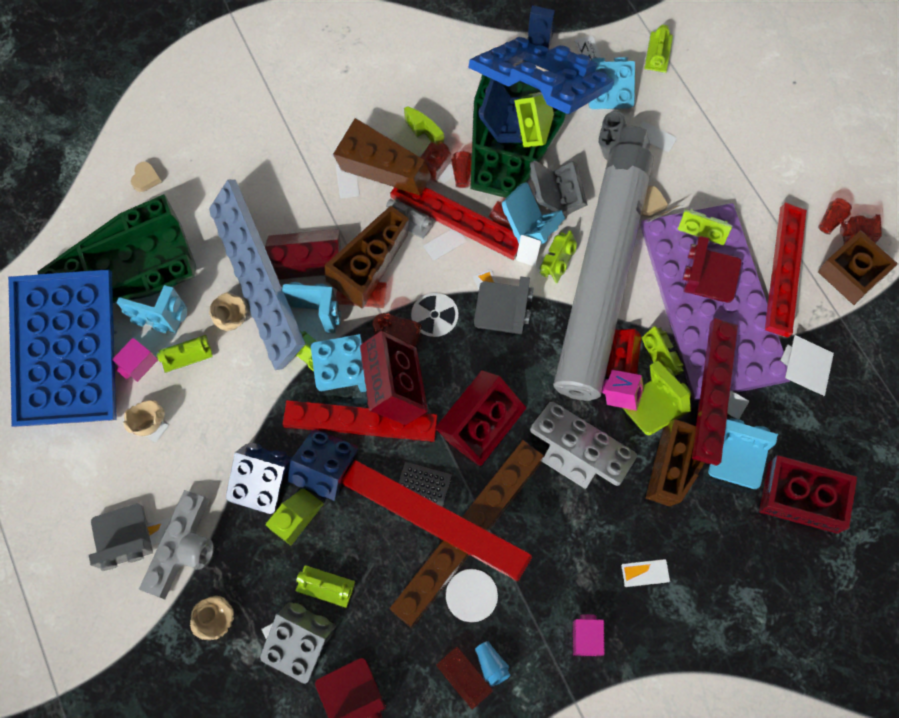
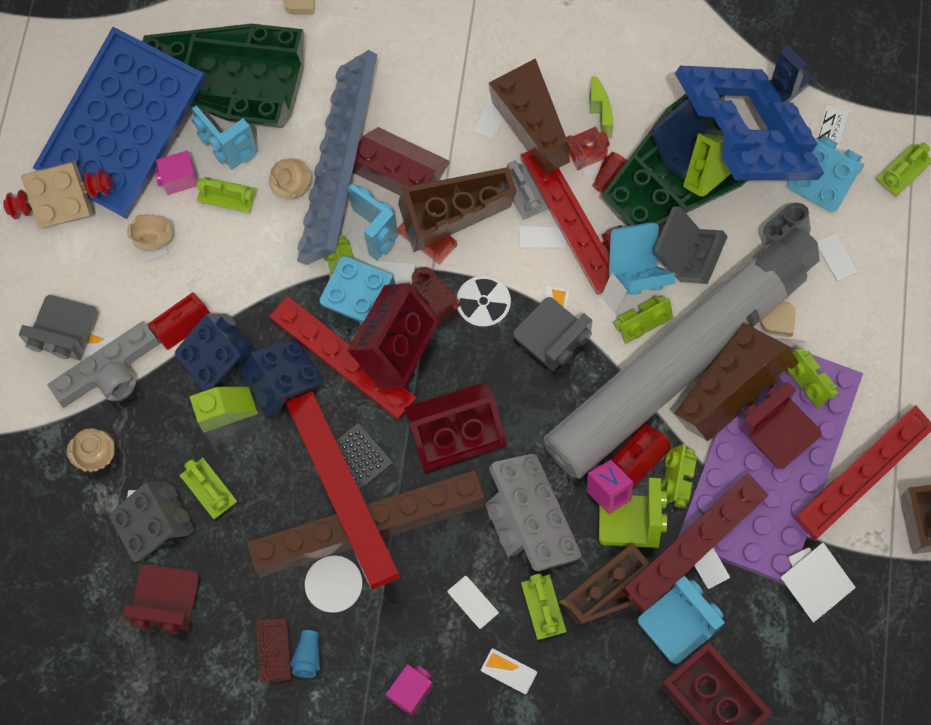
camera: 35 degrees right, 0 degrees up
(47, 434) = (57, 194): none -> tan plate
(213, 471) = (178, 320): none -> red slope
(361, 327) = (401, 271): none -> white sticker
(583, 539) = (473, 602): none -> white sticker
(637, 509) = (543, 606): none -> lime hinge
(657, 259) = (733, 380): none -> reddish brown wedge

